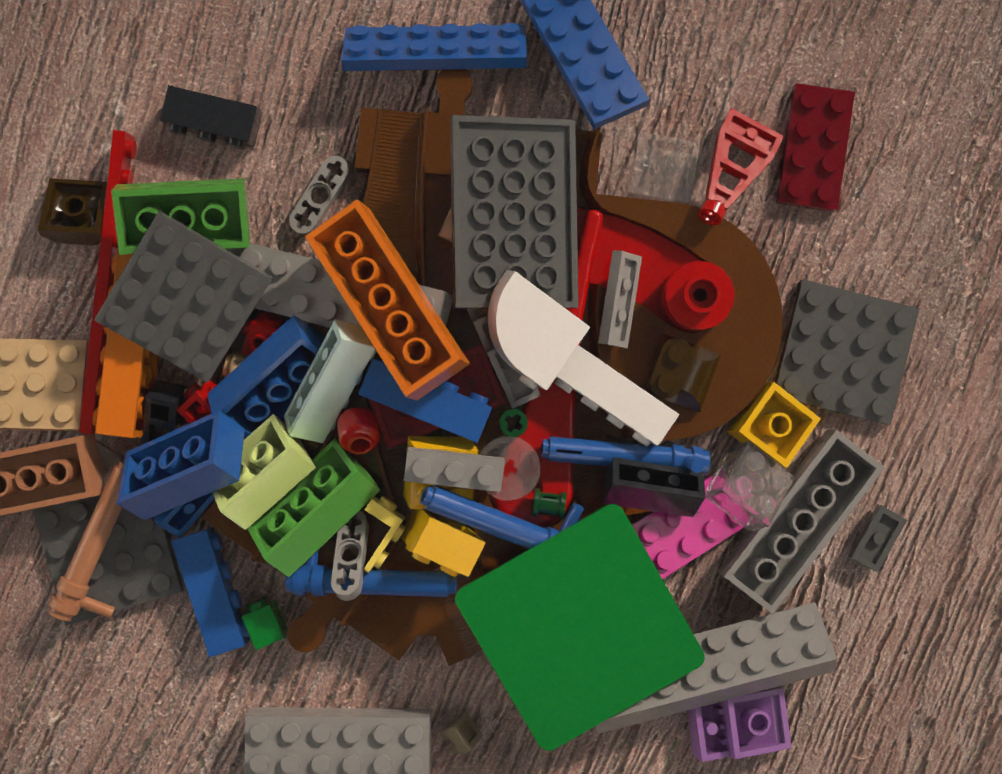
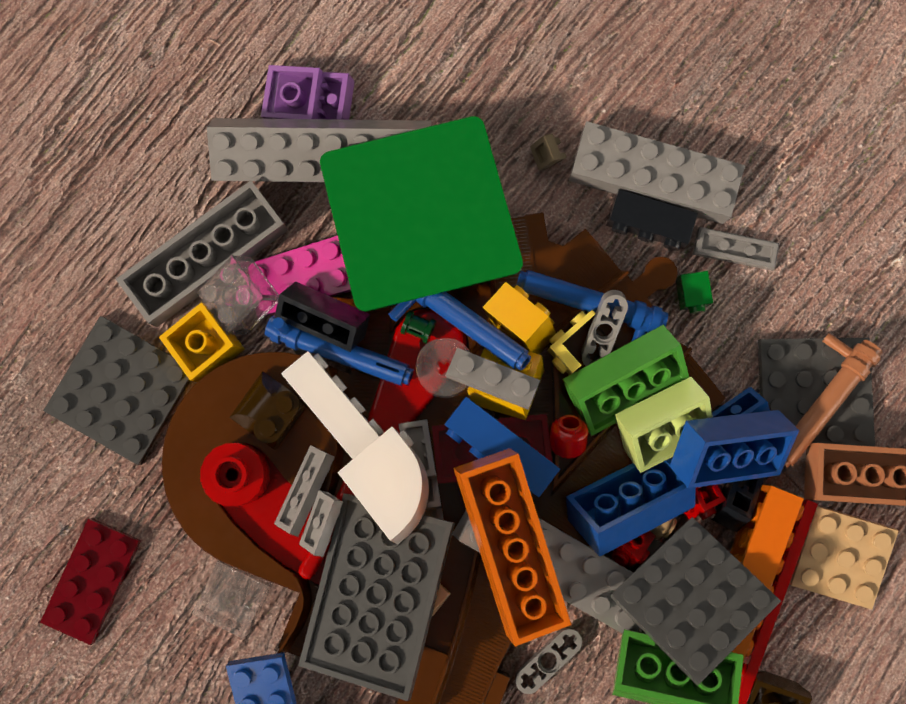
camera: 165 degrees left, 5 degrees down
(211, 591) = (734, 333): blue brick -> none
(231, 683) = (736, 248): none -> light grey tile
(329, 382) = (583, 487): light aqua brick -> none
(330, 689) = (651, 220): none -> black brick
(515, 432) = (430, 397): dark green bush -> none
(592, 270) = (321, 523): none -> light grey plate
(748, 136) = (145, 606): plate -> none
(877, 538) = (141, 221): dark grey plate -> none

